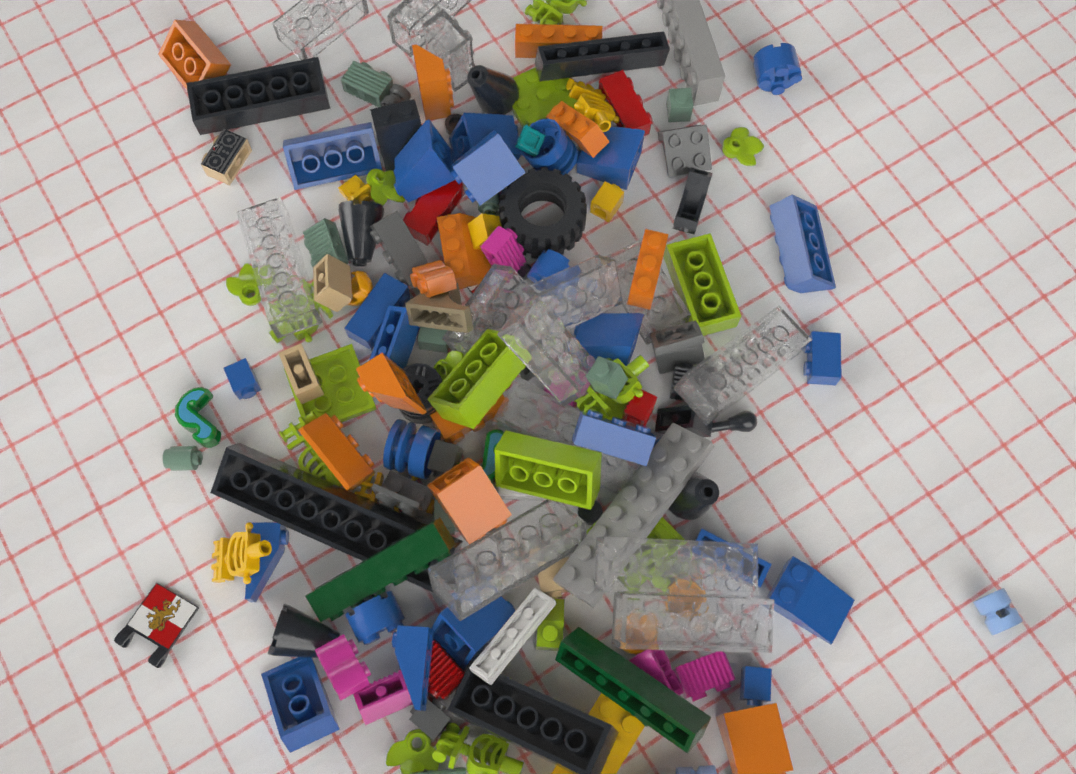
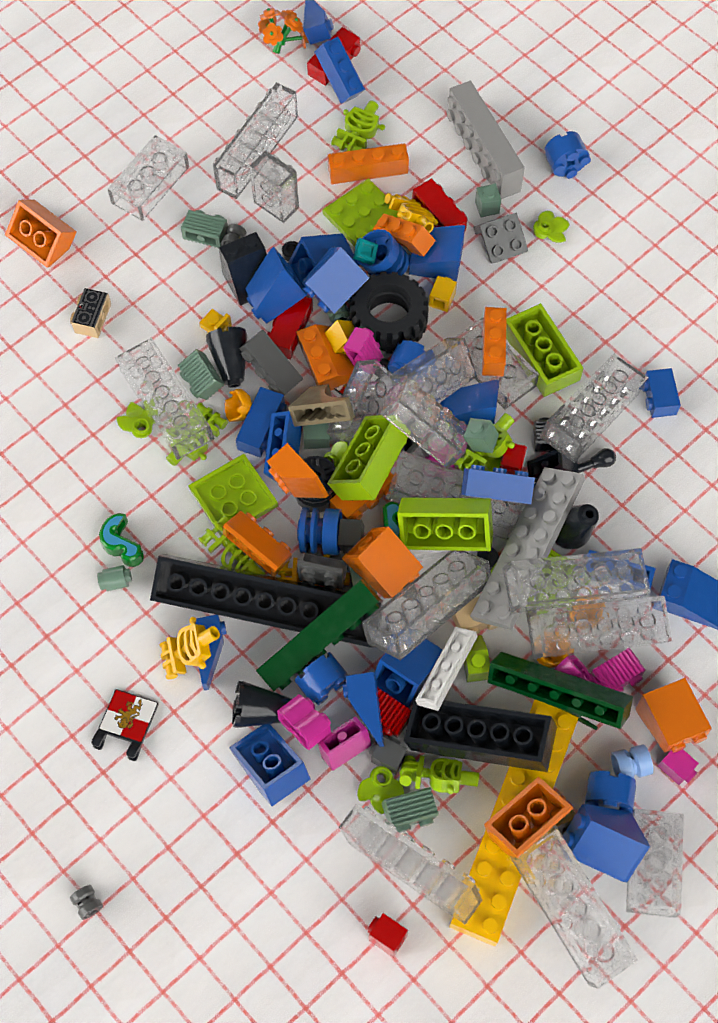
camera: 10 degrees left, 5 degrees down
(242, 379) = (152, 501): blue brick -> none
(258, 96) = (109, 254): black brick -> none
(301, 373) = (208, 484): tan brick -> none
(331, 155) = (188, 295): blue slope -> none
(332, 283) = (216, 403): tan brick -> none
(384, 187) = (241, 313): lime plate -> none
(433, 84) = (266, 216): orange slope -> none
(433, 278) = (307, 382): orange brick -> none
(493, 90) = (320, 214): black cone -> none
(601, 56) = (410, 169): black brick -> none
(677, 346) = (533, 403): dark grey bracket -> none
(692, 201) = (518, 280): black arch -> none
(755, 685) = (662, 671): blue brick -> none
(801, 245) = (621, 301): slope -> none

